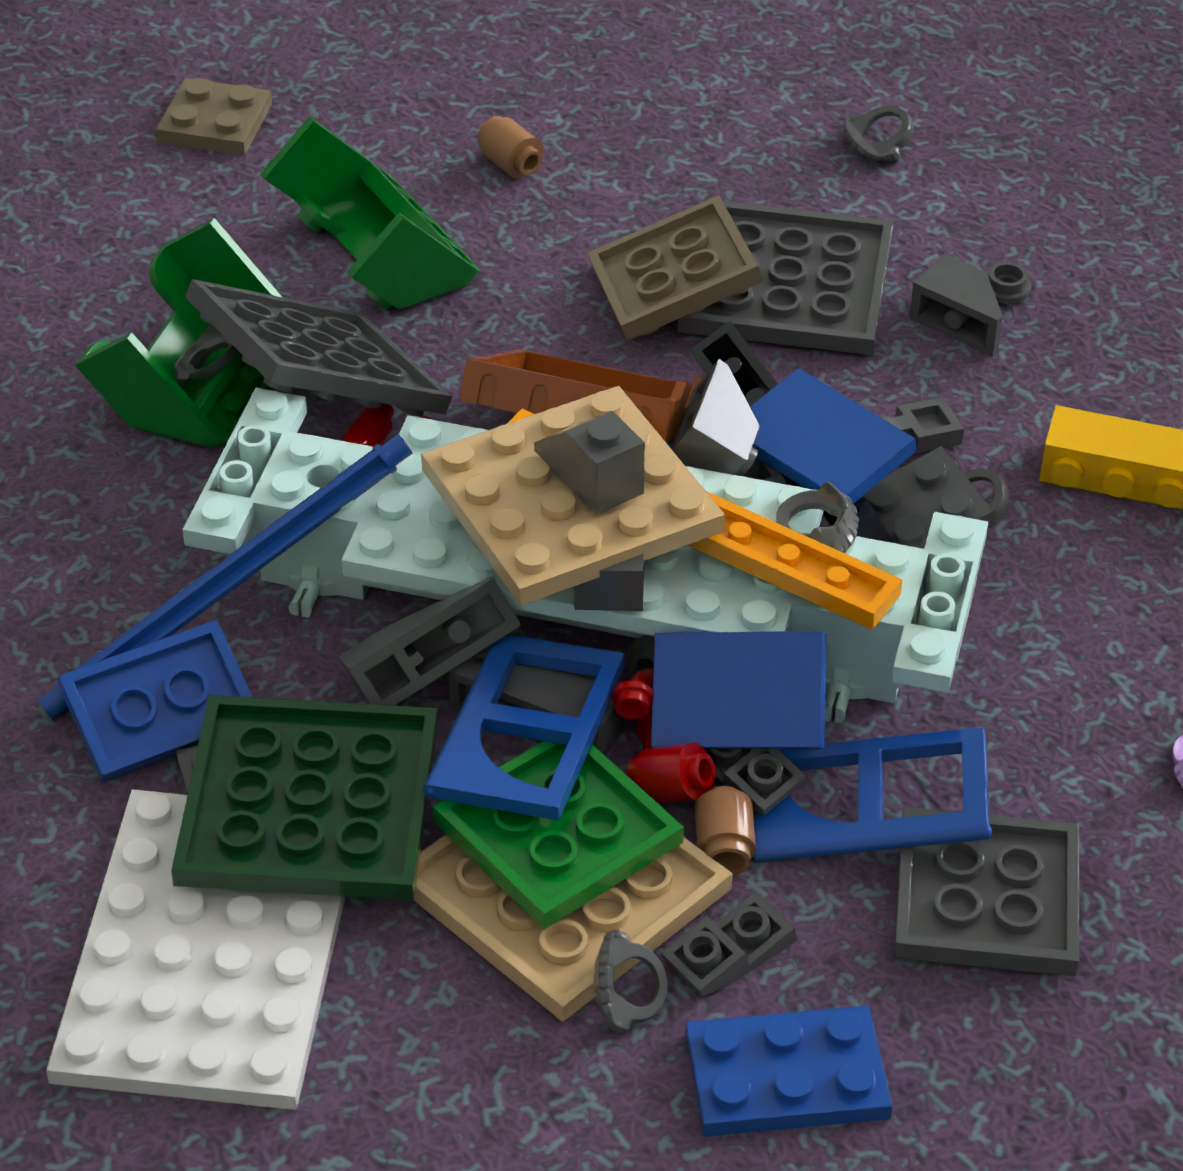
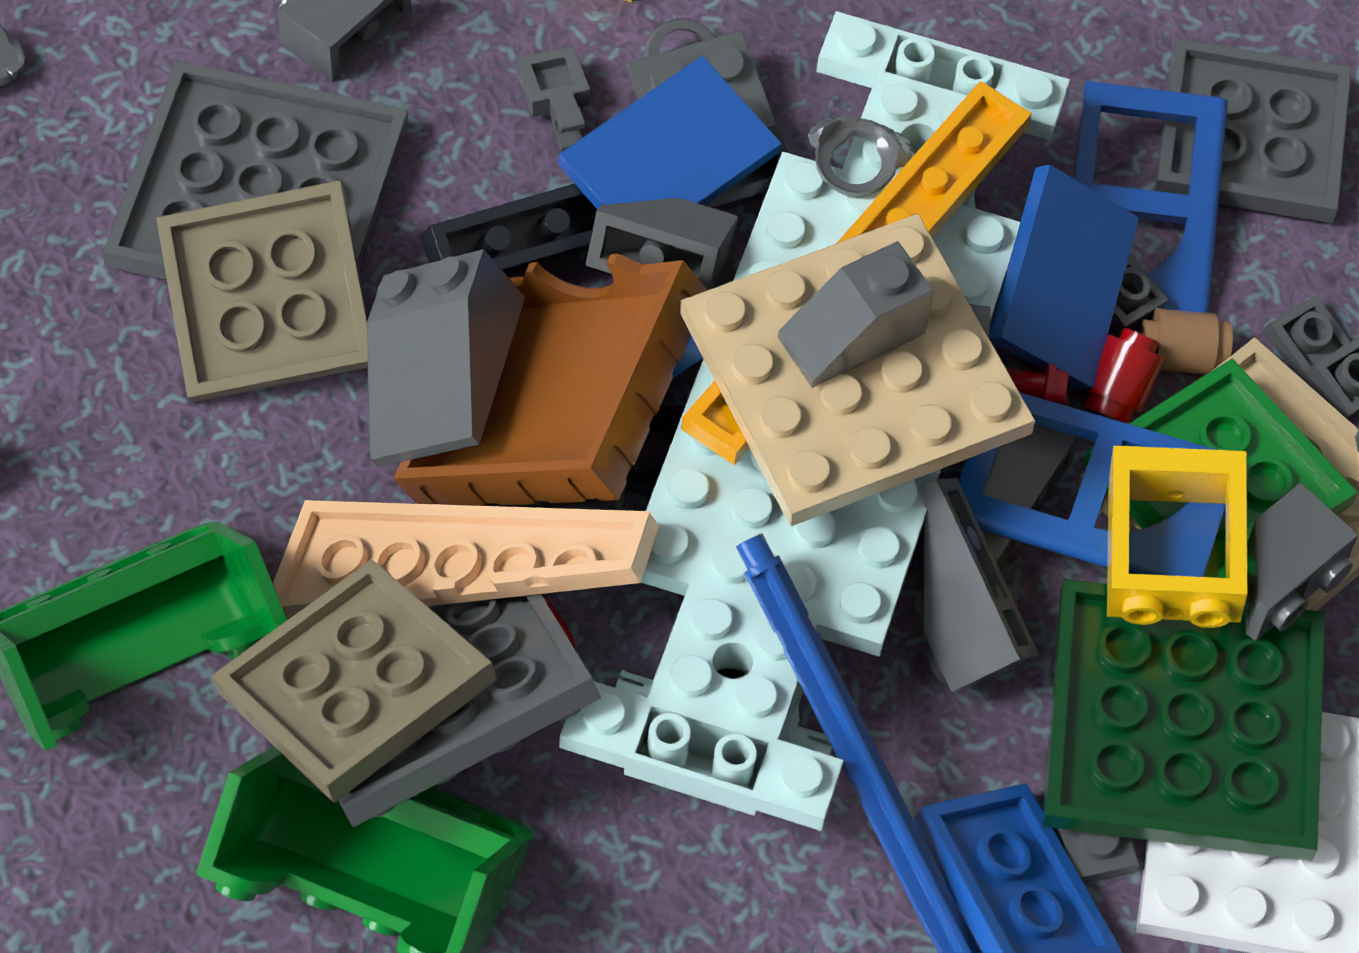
camera: 90 degrees left, 15 degrees up
(188, 366) = (398, 876): dark grey piece -> none
(299, 282) = (354, 679): none -> dark tan plate
(432, 354) = (463, 550): none -> light nougat wing
(448, 834) = (1292, 555): none -> dark grey slope
(457, 779) = (1177, 477): none -> yellow window
(633, 346) = (437, 355): none -> slope

